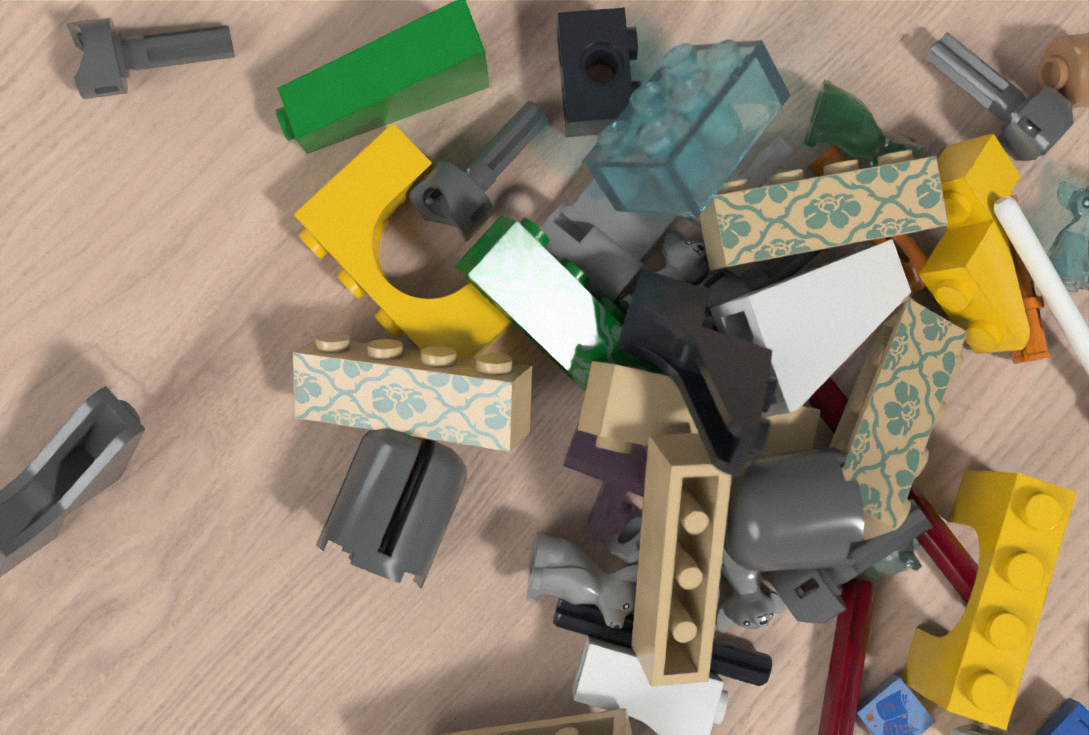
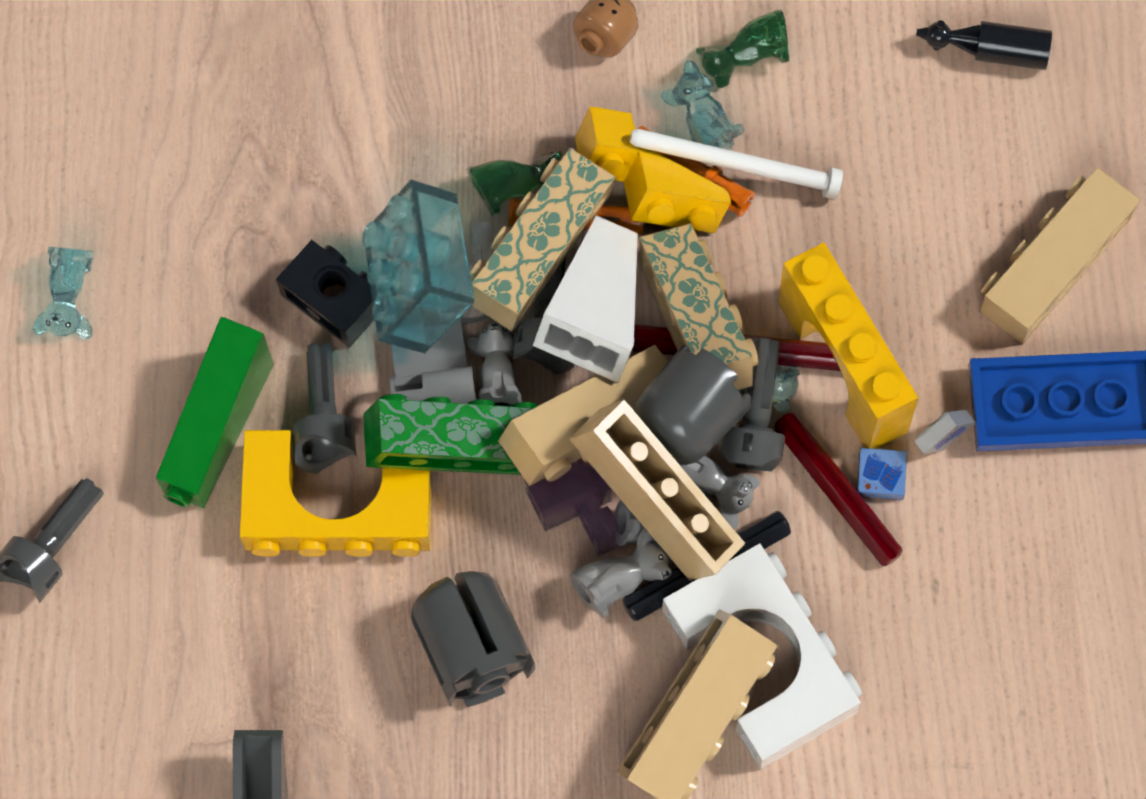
camera: 35 degrees left, 15 degrees down
(413, 391) = (413, 560): tan brick -> none
(717, 374) = (569, 370): black arch -> none
(1019, 138) = (604, 65): dark grey piece -> none

